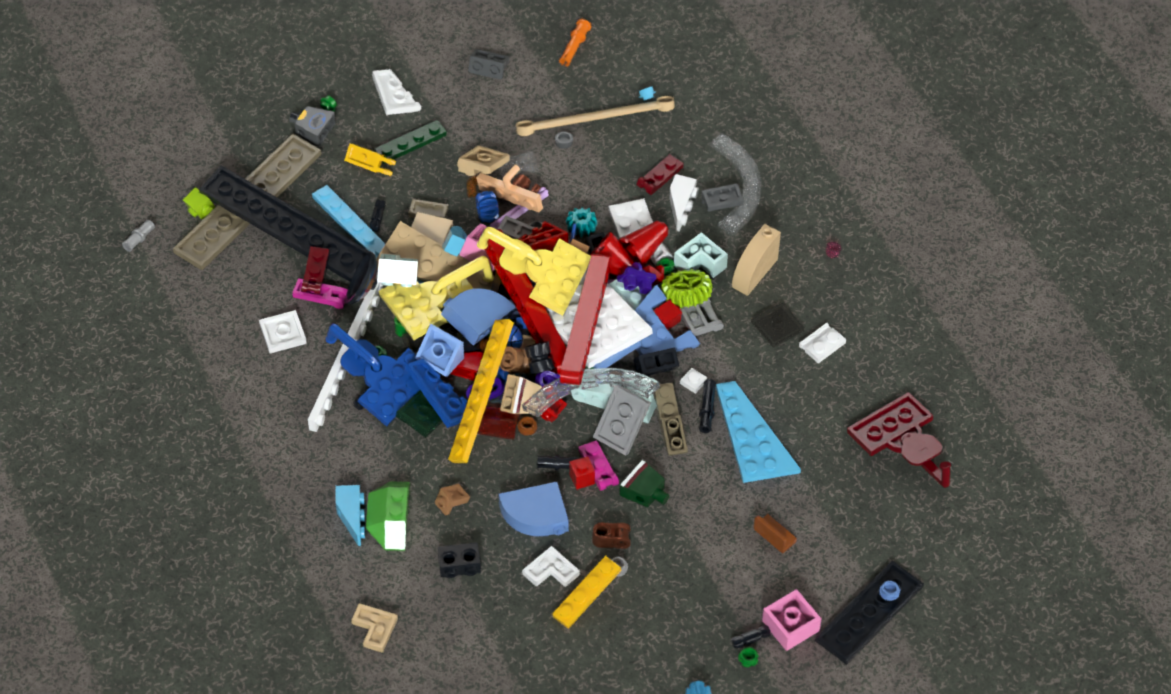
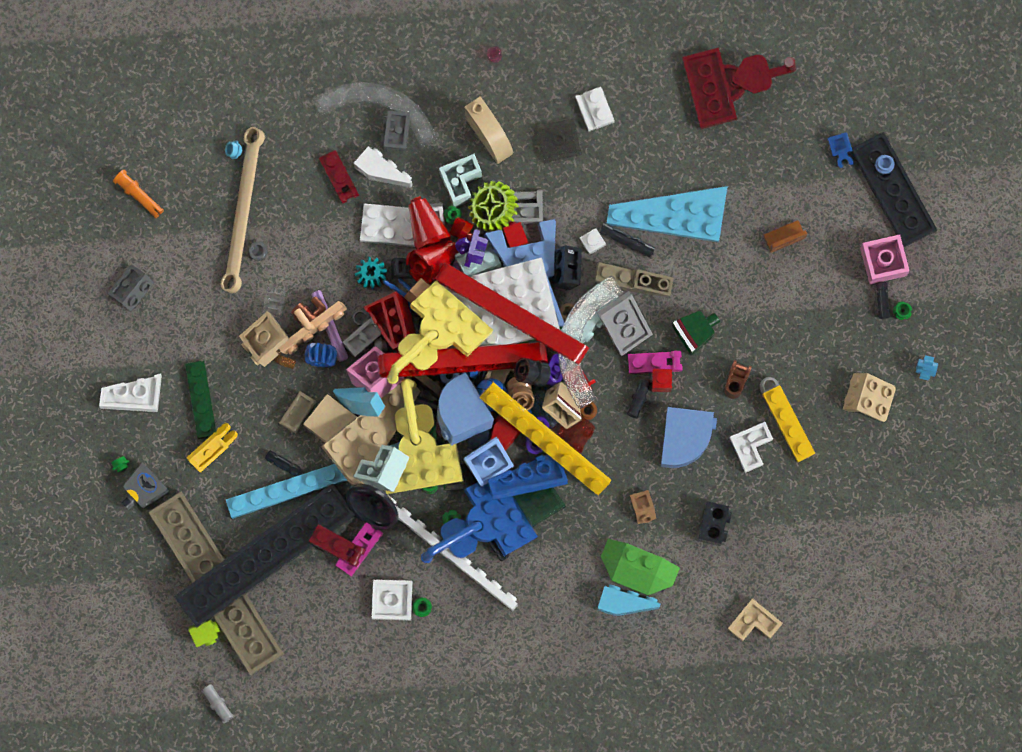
camera: 65 degrees left, 25 degrees up
(285, 352) = (426, 602): none -> green plate
(646, 656) = (869, 396): none -> tan bracket
(887, 550) = (840, 146): none -> blue plate

